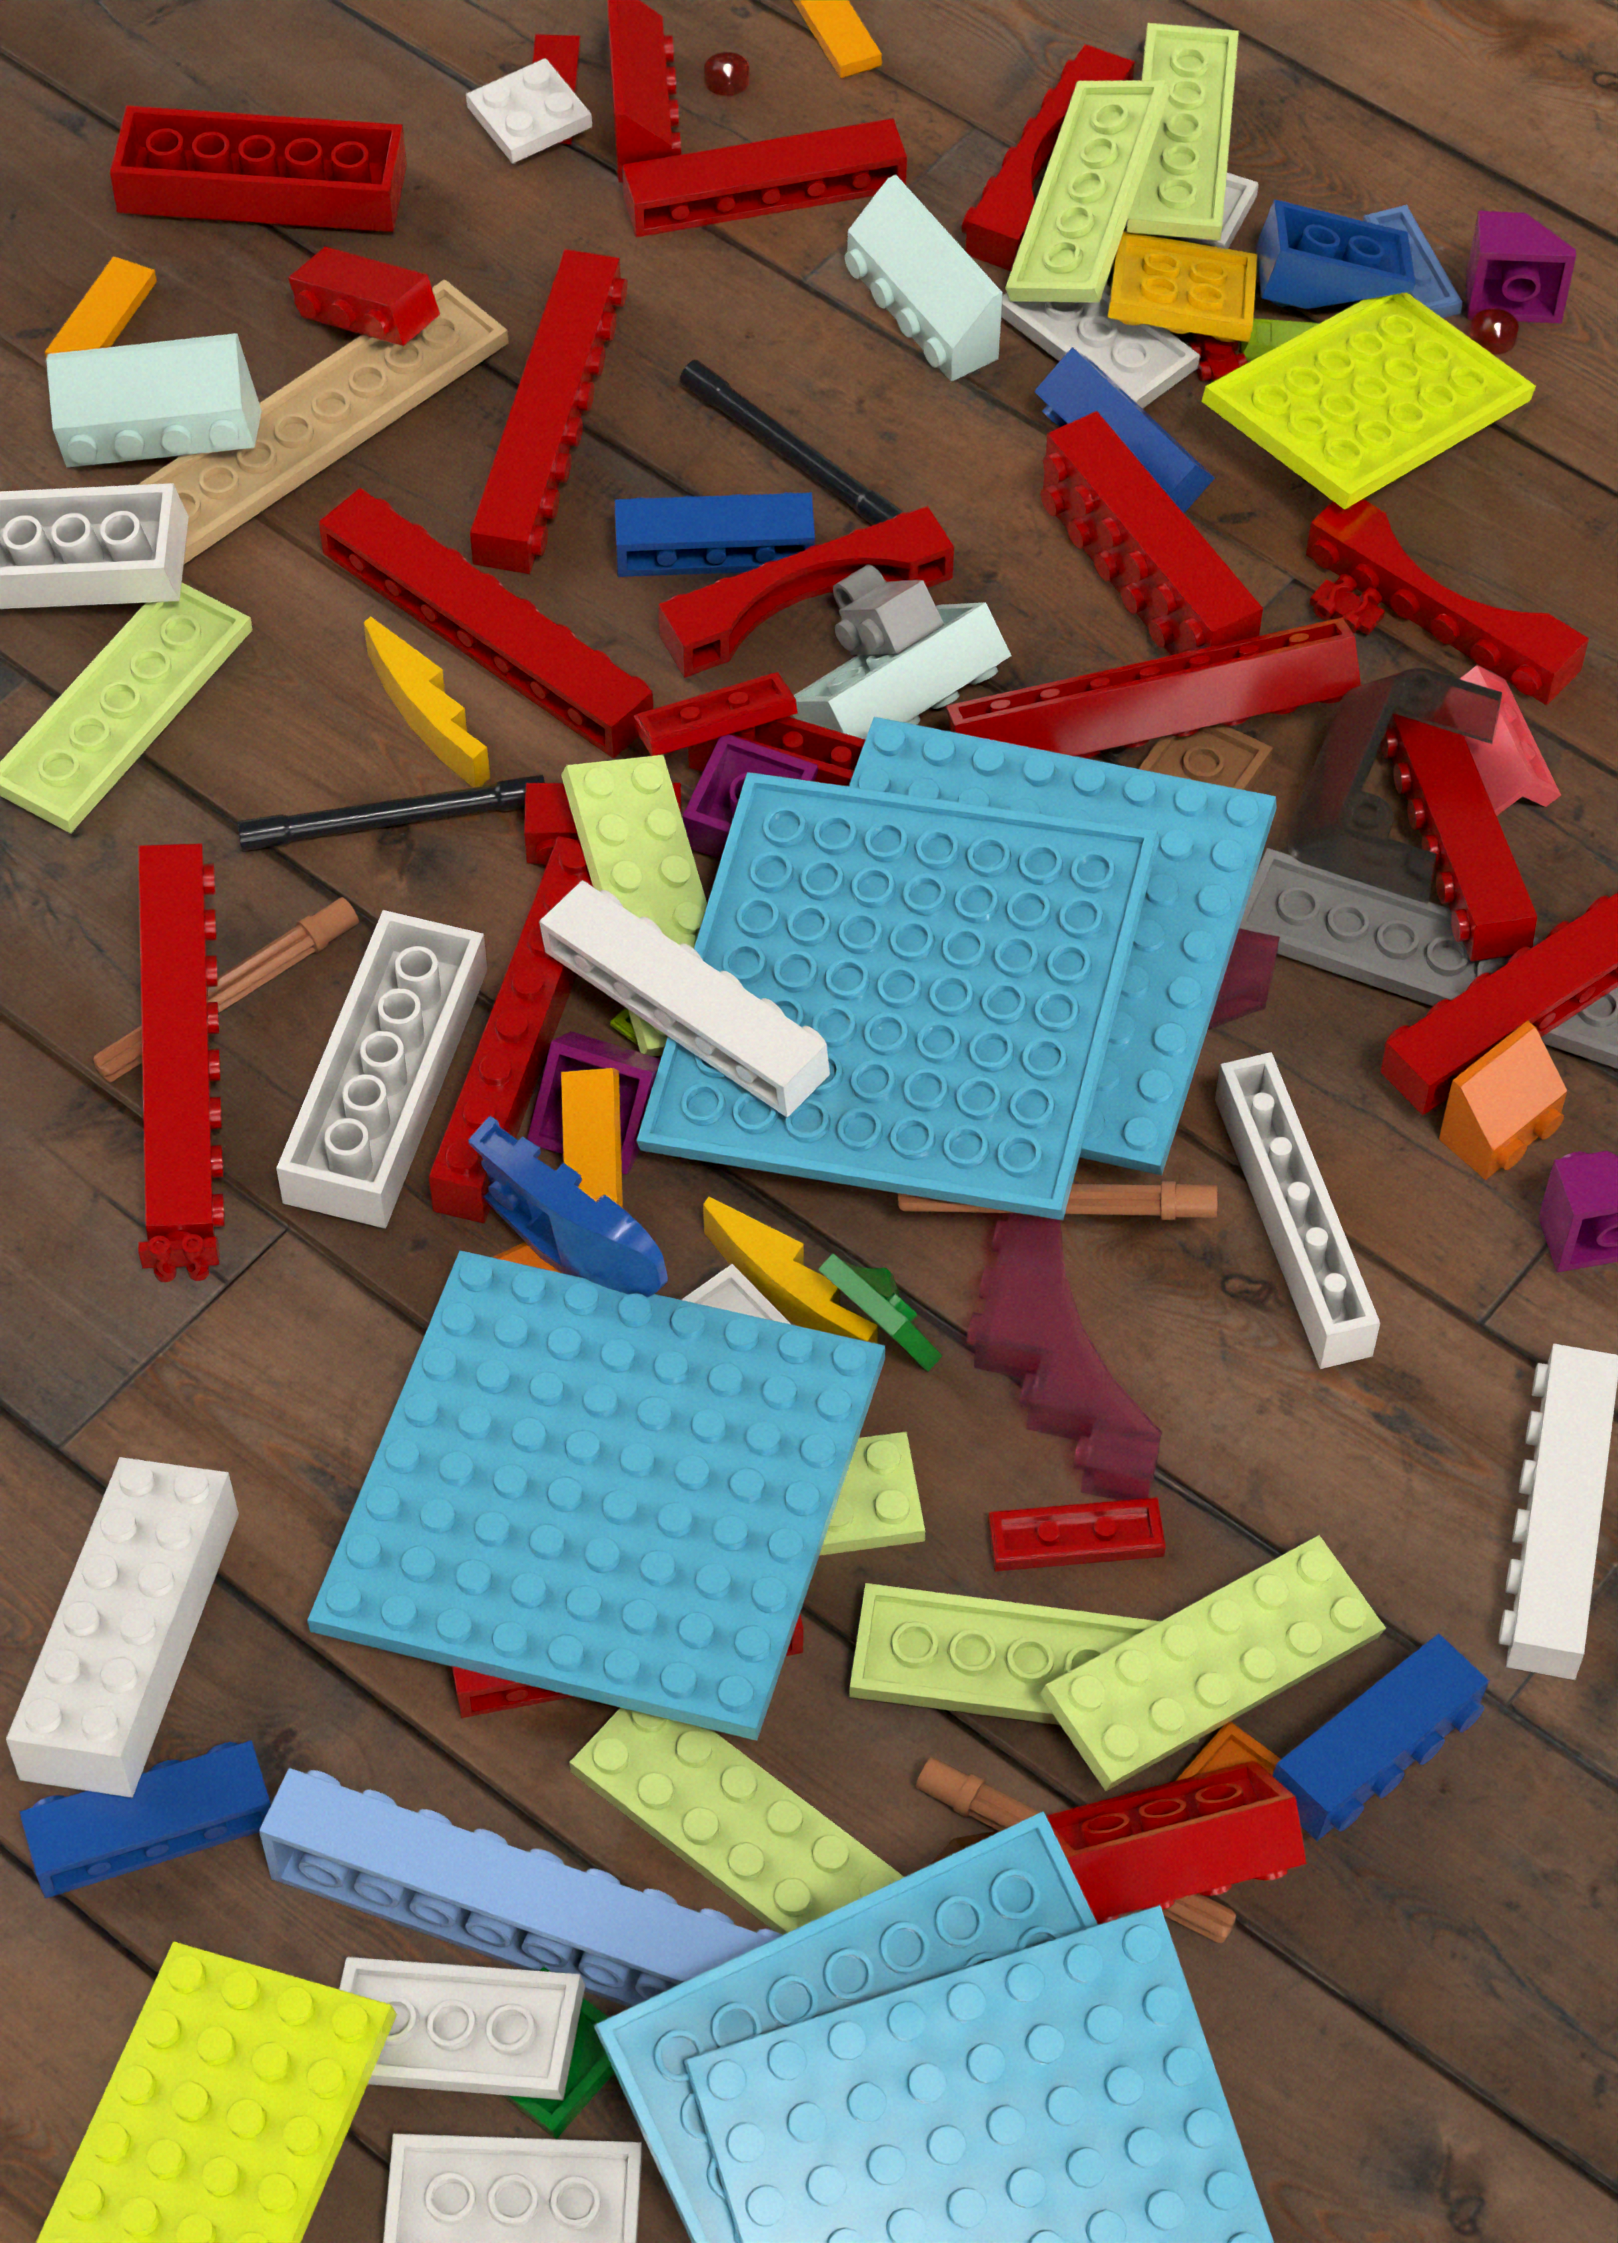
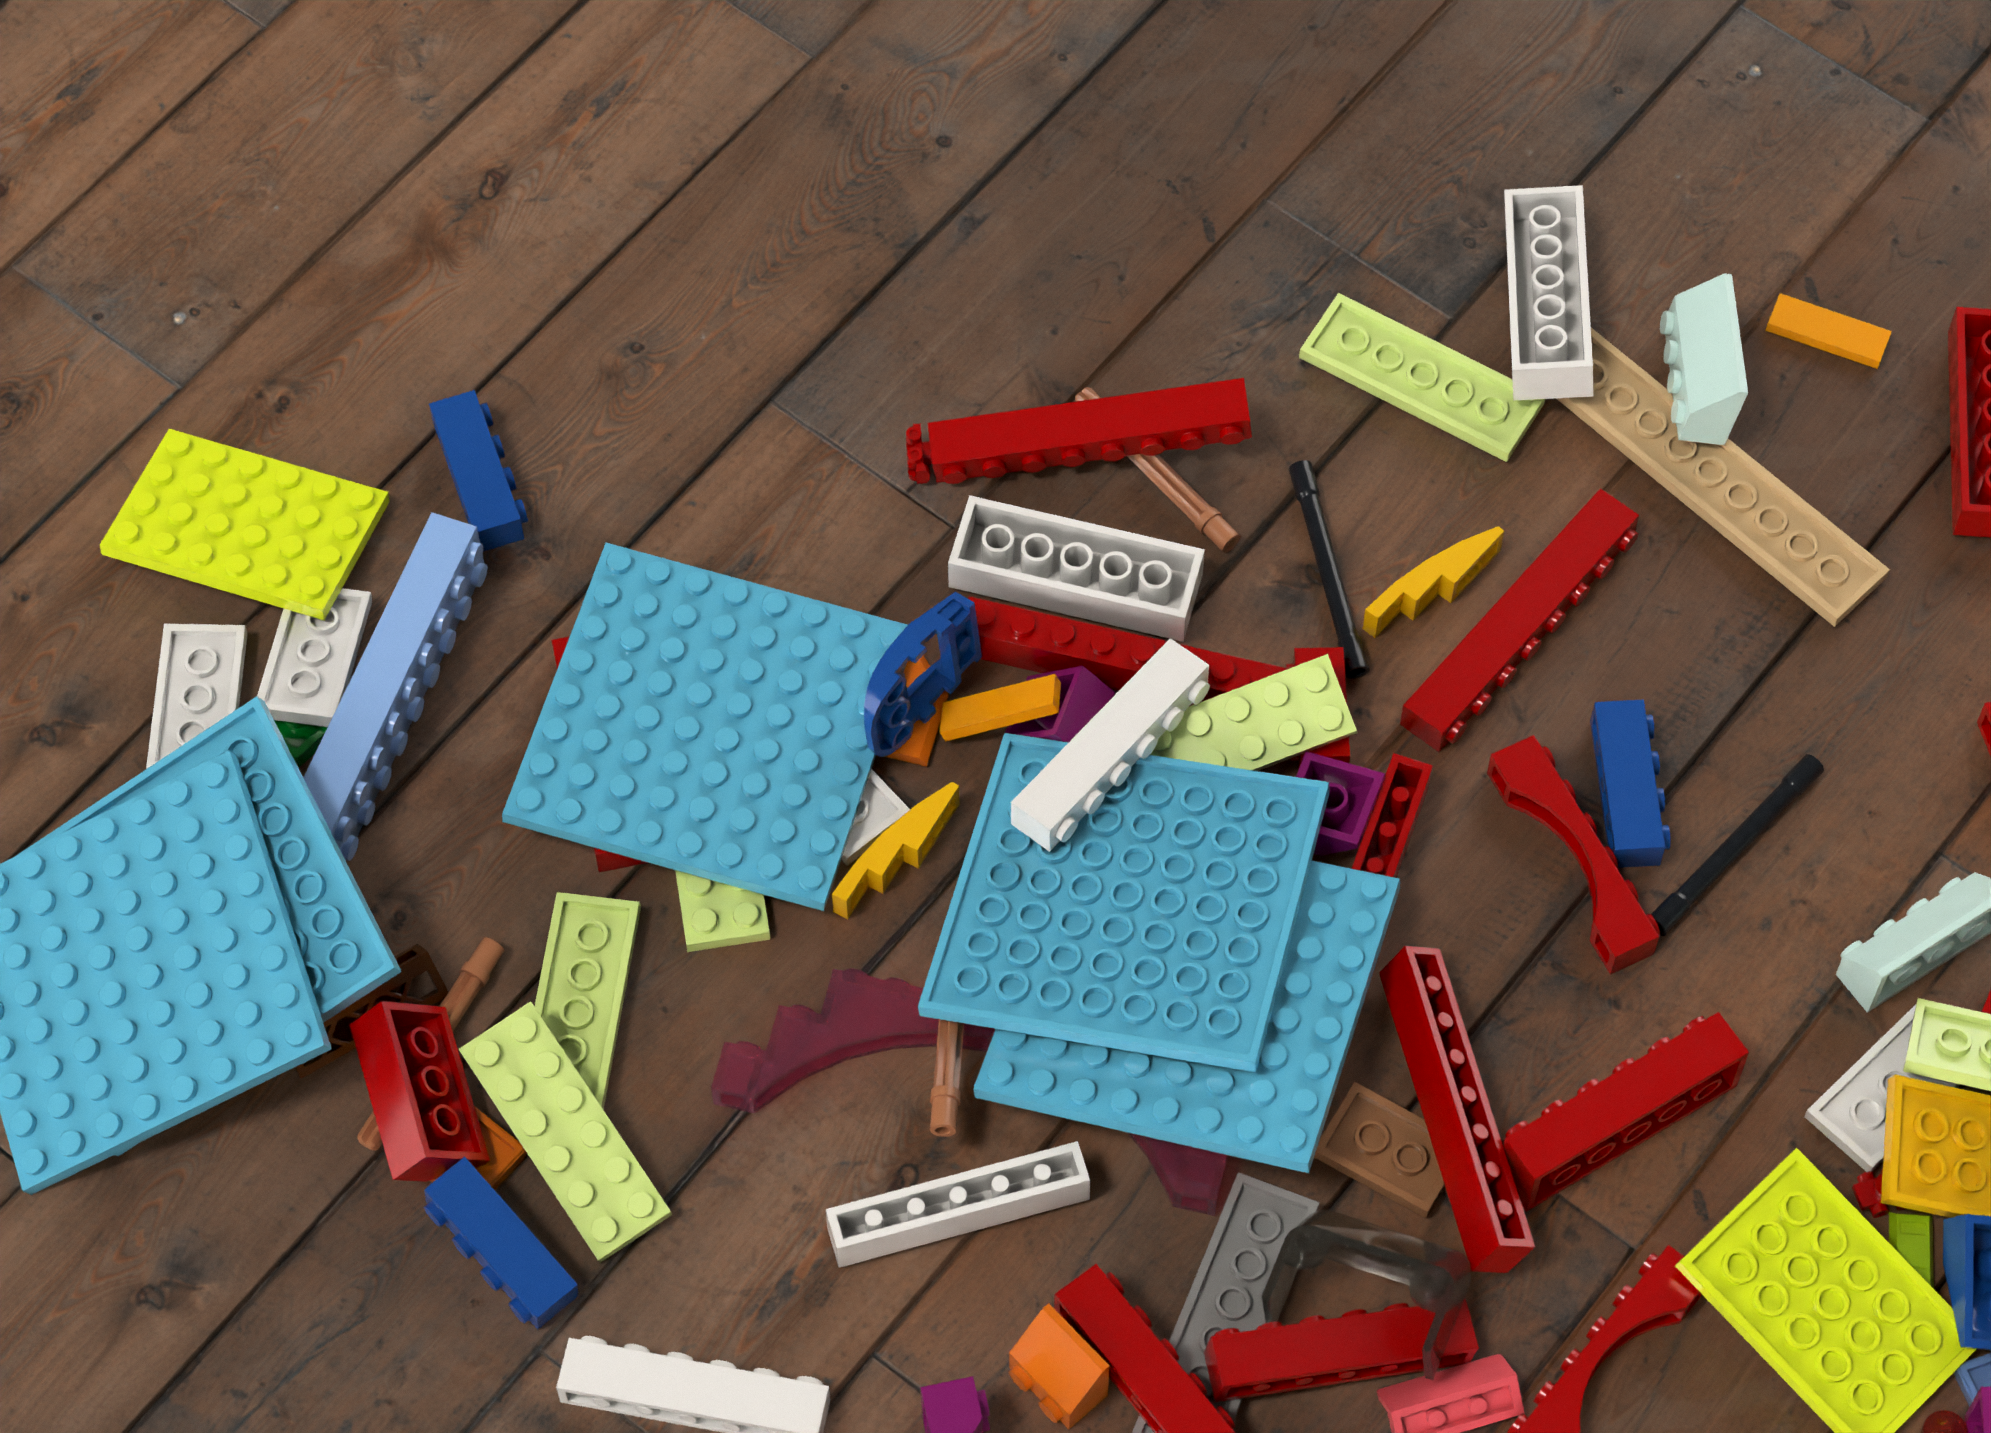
camera: 90 degrees right, 5 degrees up
(123, 1628) = (607, 436): white brick -> none
(364, 296) = (1849, 504): red brick -> none
(548, 412) = (1756, 655): red brick -> none
(715, 714) = (1400, 767): red tile -> none
(729, 1819) = (446, 841): yellowish green plate -> none
(879, 1298) = (862, 905): green plate -> none
(882, 614) = (1532, 905): light grey hinge -> none
(910, 681) = (1483, 924): light aqua slope -> none
(1076, 1534) = (686, 1052): red tile -> none
(1081, 387) = (1764, 1099): blue brick -> none
(1338, 601) = (1593, 1290): red piece -> none

